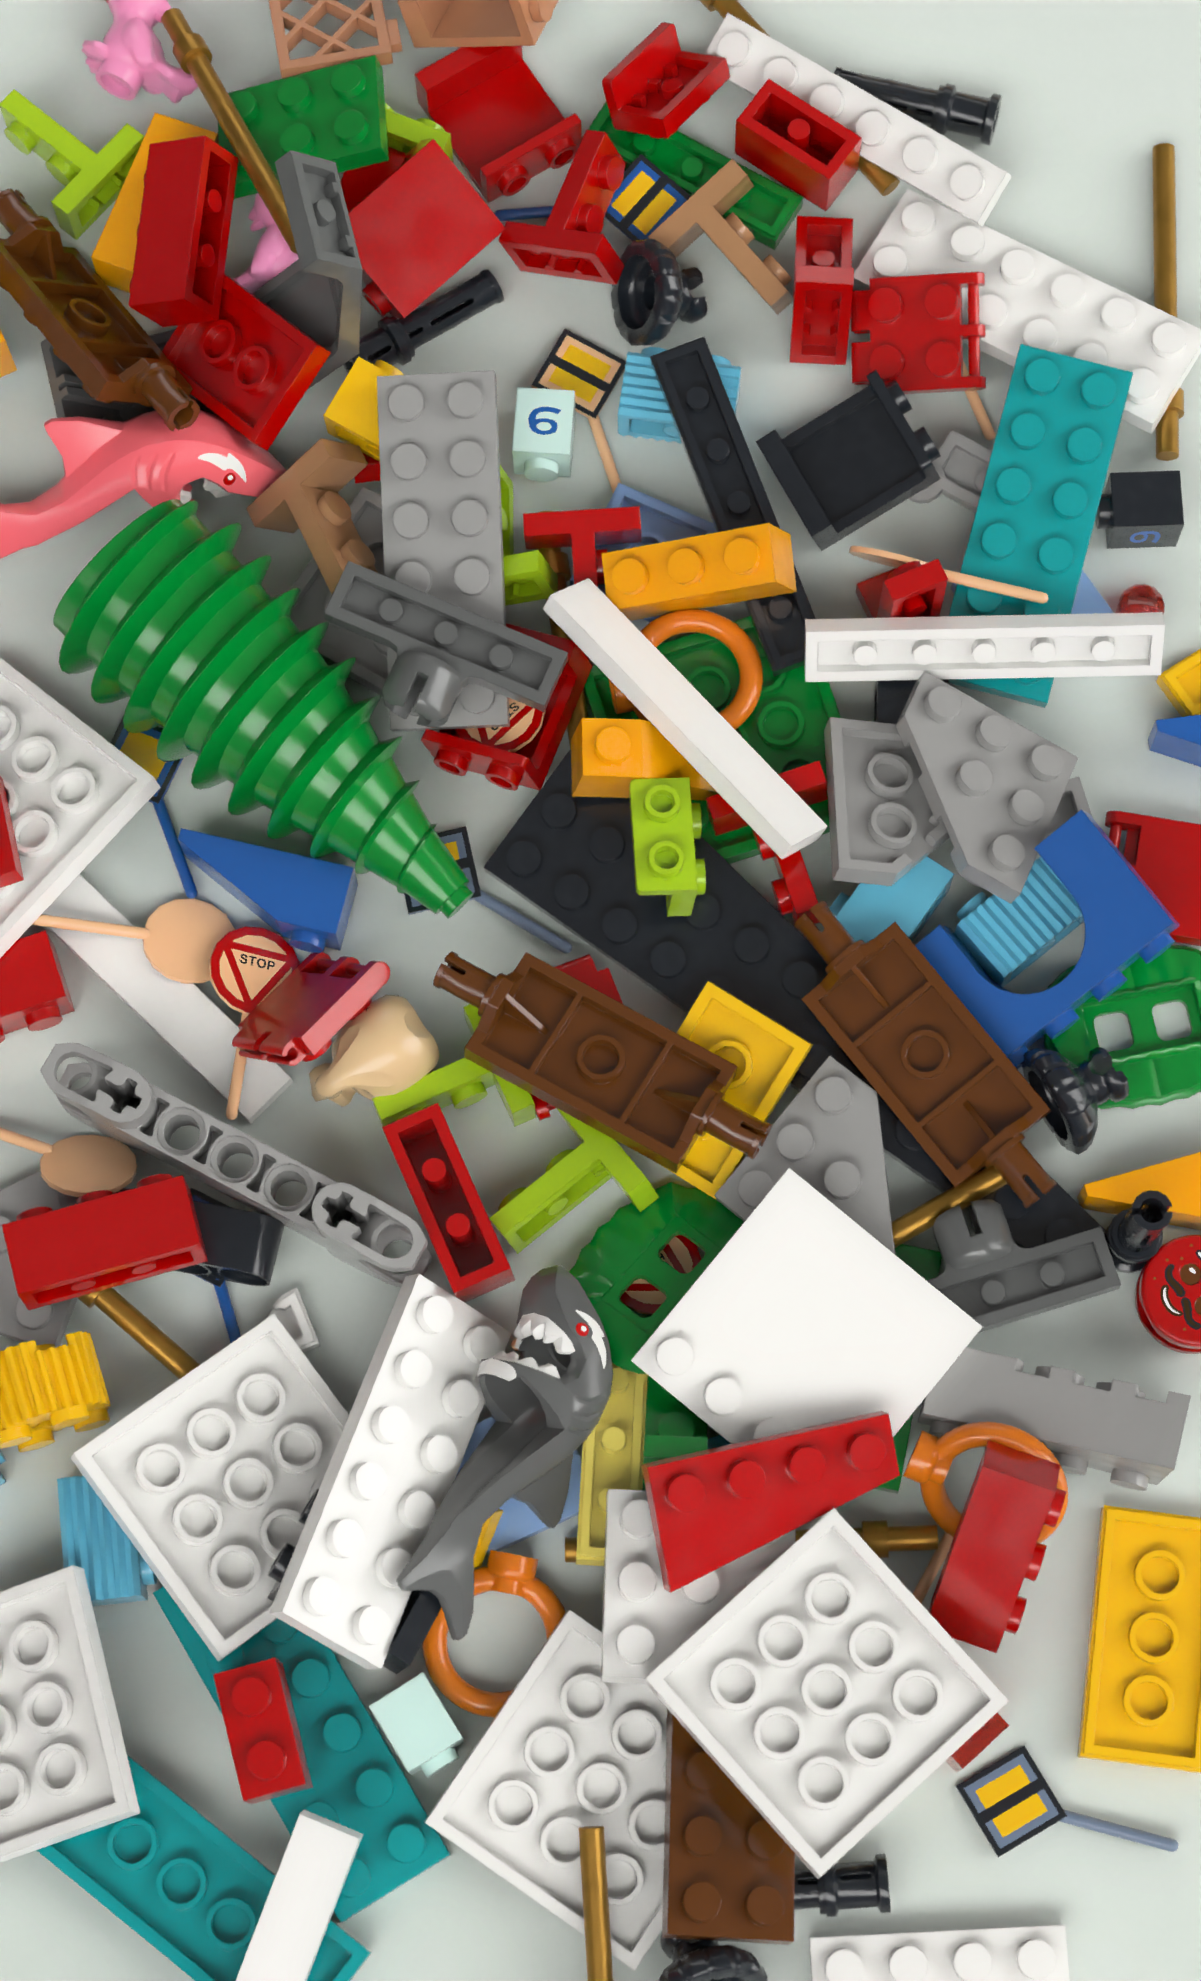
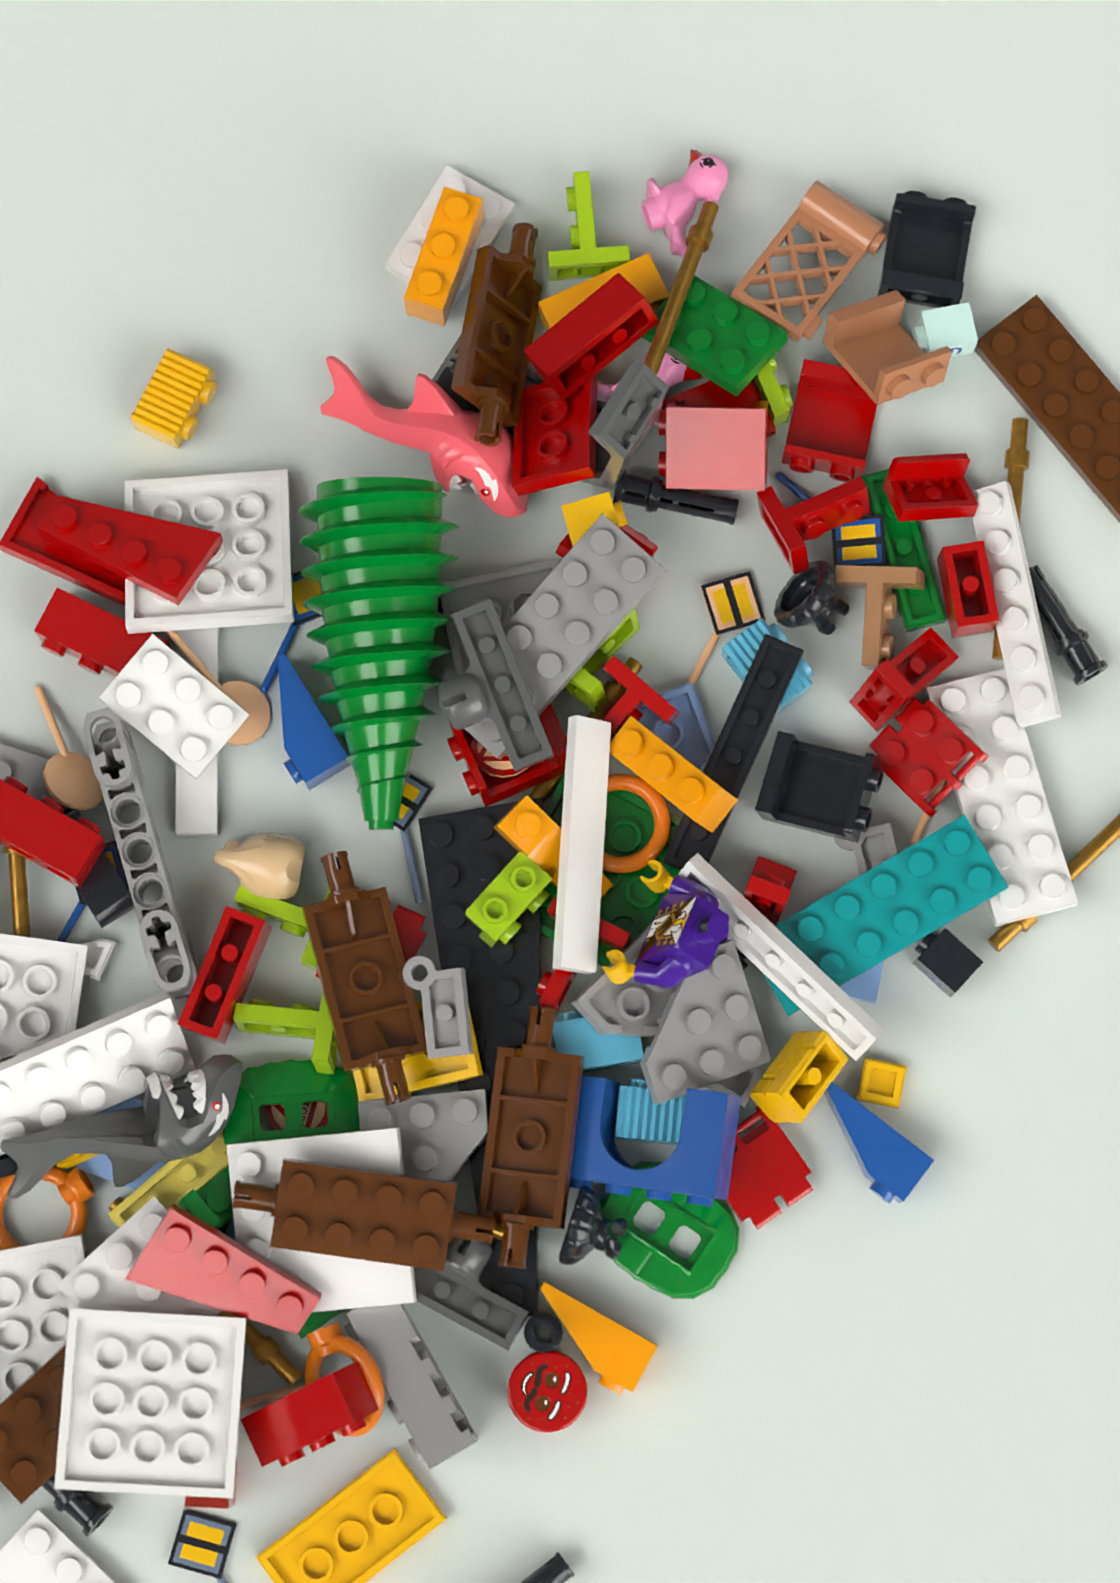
camera: 45 degrees right, 5 degrees up
(120, 987) = (173, 706): none -> white plate
(244, 972) = (250, 763): piece -> none
(309, 1009) = (254, 808): red plate -> none
(310, 501) = (517, 549): medium nougat bracket -> none
(543, 433) = (677, 619): light aqua brick -> none
(711, 1009) = (443, 1008): none -> light grey hinge
(843, 1284) = (363, 1214): none -> reddish brown plate
(874, 707) = (680, 937): none -> dark purple torso
(896, 560) = (791, 879): light nougat piece -> none
(1120, 746) = (798, 1076): none -> yellow brick
(1140, 592) = (888, 1019): clear red hinge -> none

